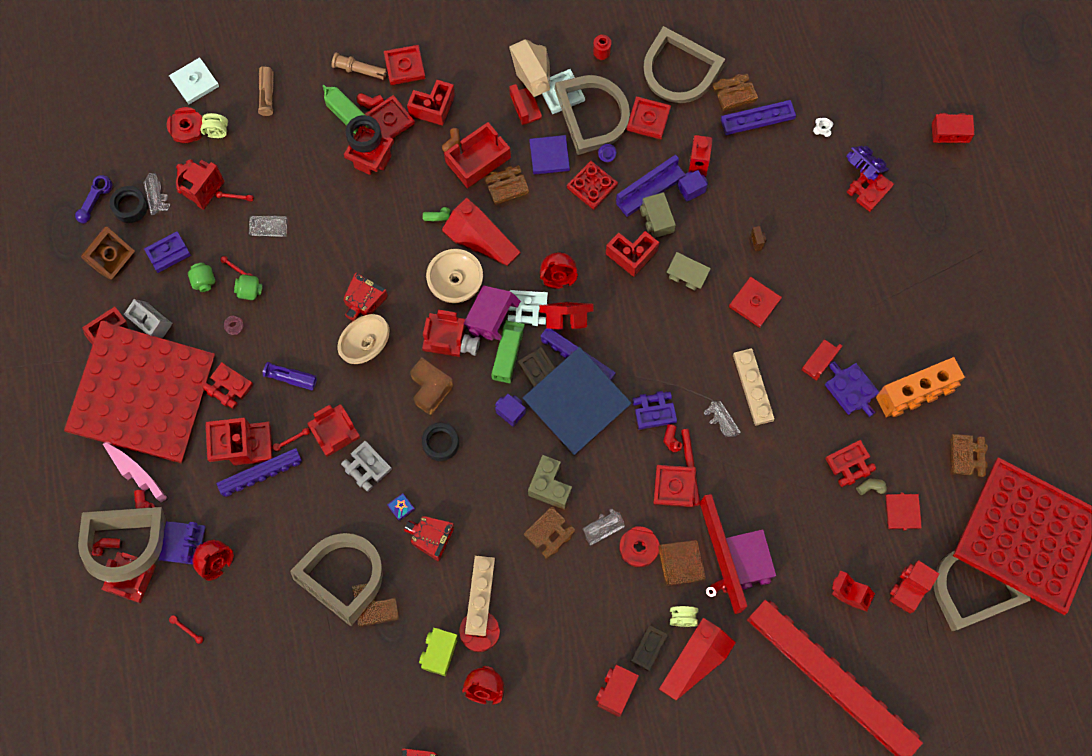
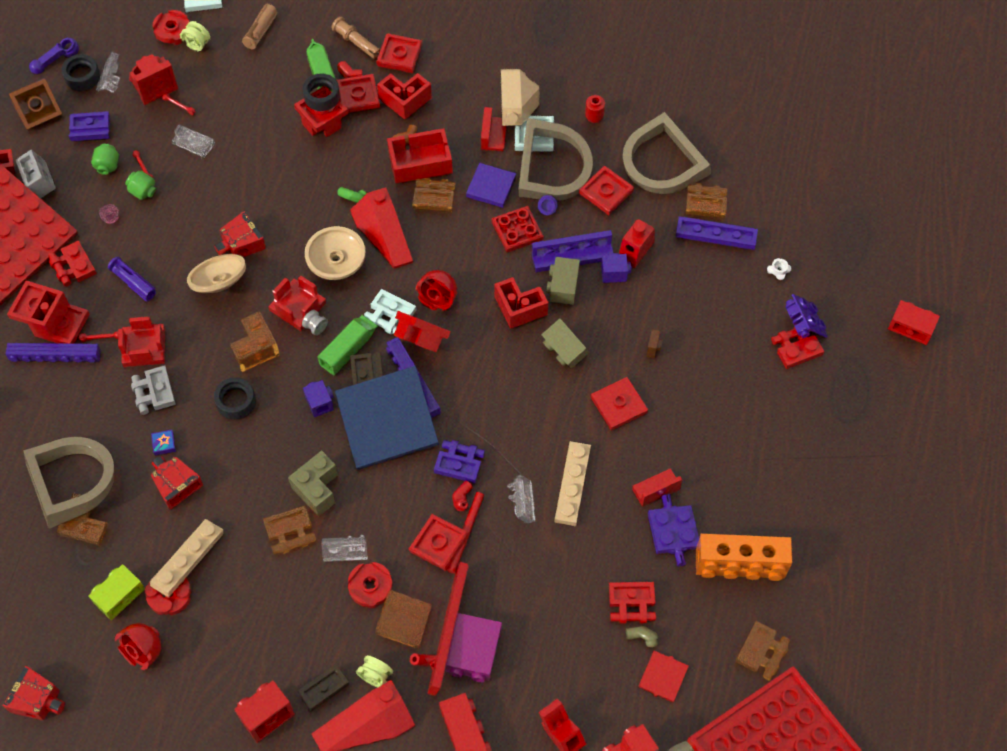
camera: 25 degrees right, 10 degrees down
(489, 312) = (347, 298): magenta panel -> none

